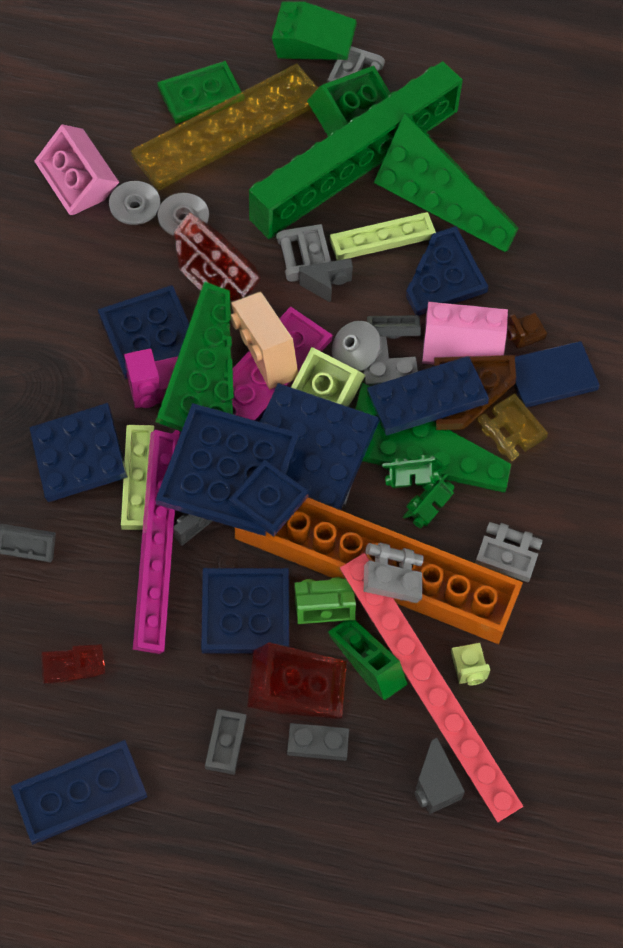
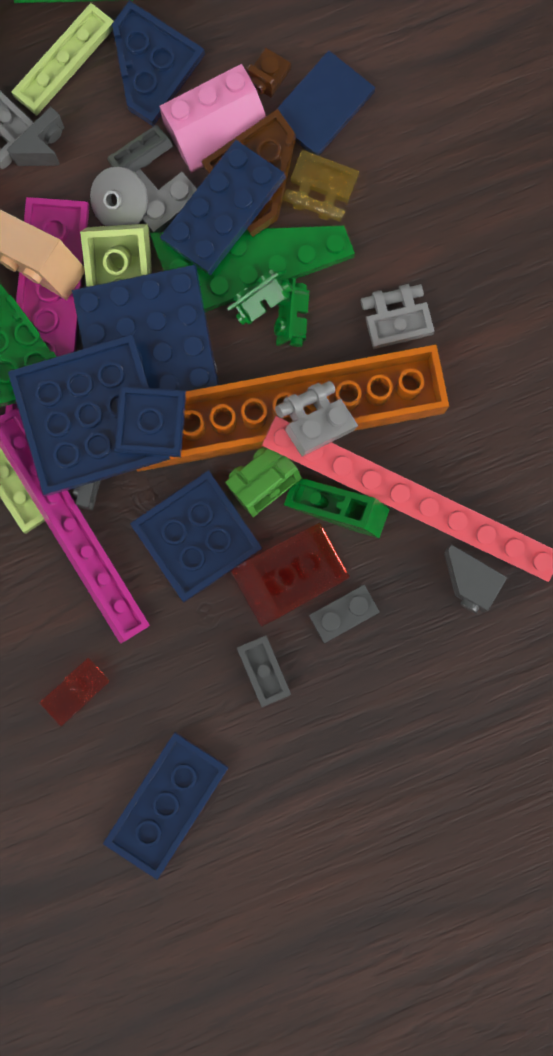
camera: 30 degrees left, 20 degrees up
(470, 664) = (431, 450): yellowish green bracket -> none

